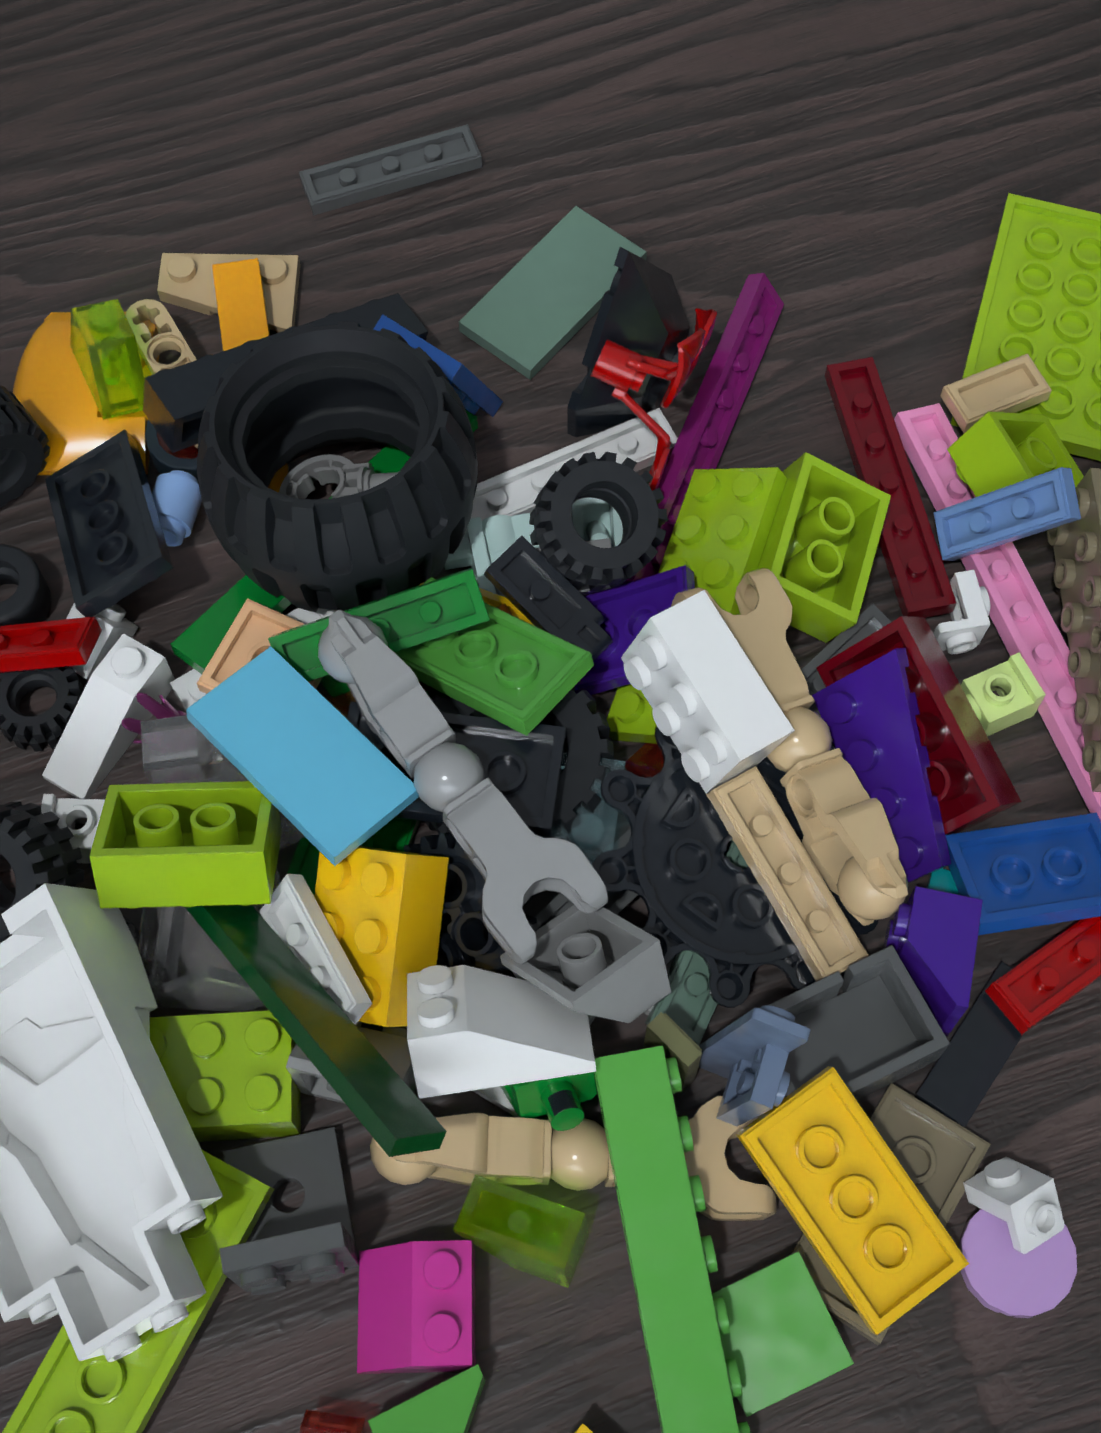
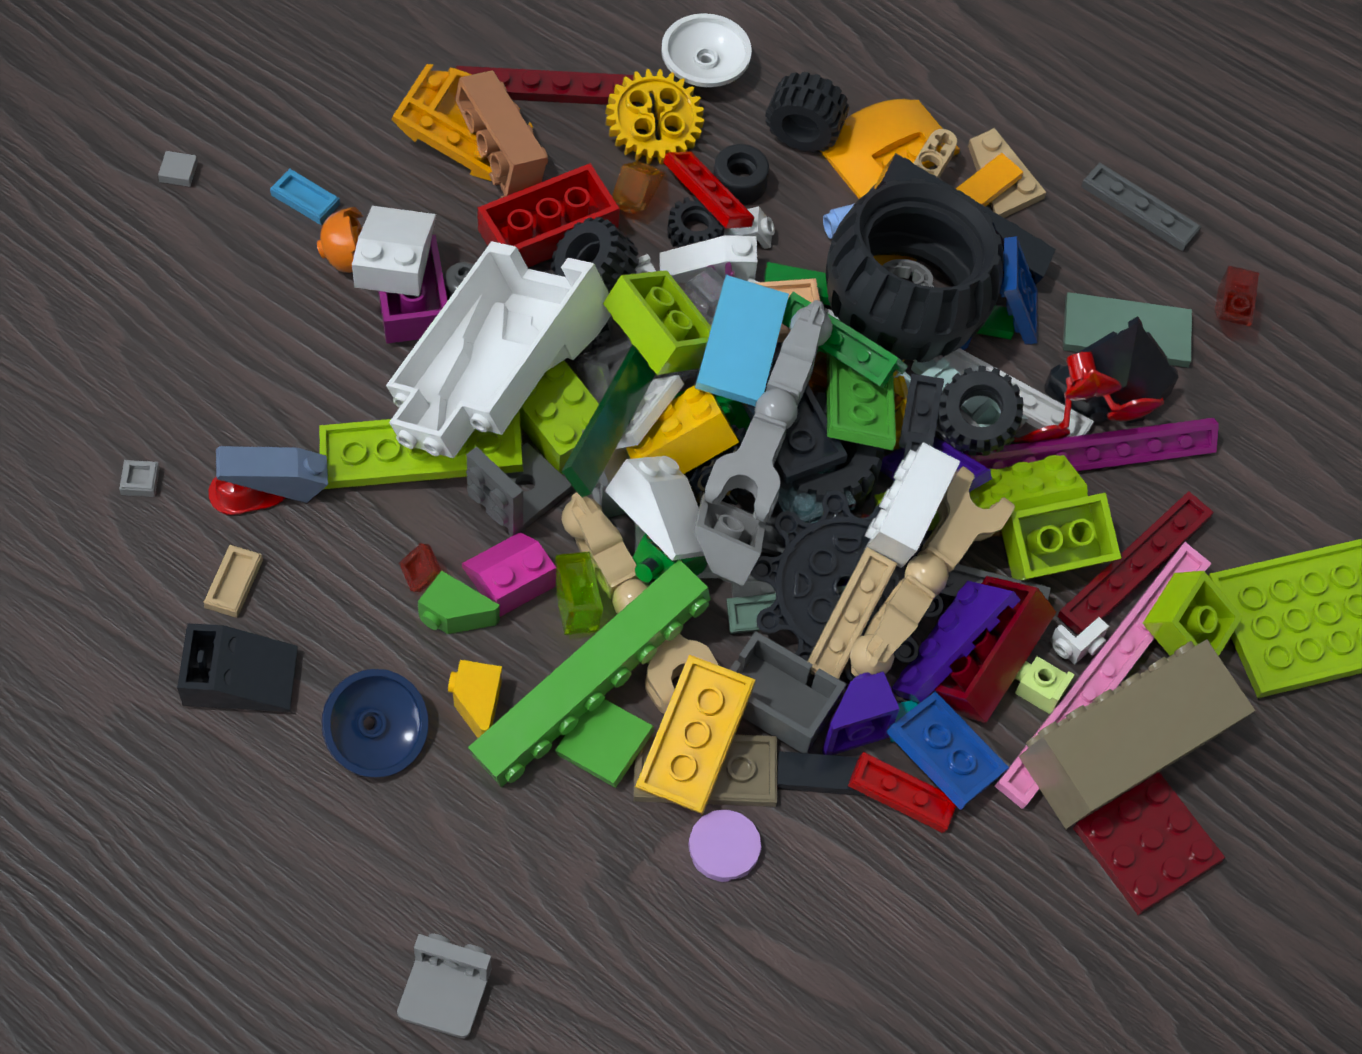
camera: 50 degrees right, 5 degrees down
(107, 524) = (811, 194): black plate -> none
(108, 357) = (904, 134): clear neon green slope -> none
(598, 147) = (1237, 296): none -> clear red slope
(677, 1044) = (715, 612): olive tile -> none
(753, 1060) = (727, 644): sand blue bracket -> none
(998, 389) = (1242, 587): tan tile -> none
(1007, 514) = (1149, 617): medium blue tile -> none
(1021, 1199) = (752, 826): white bracket -> none

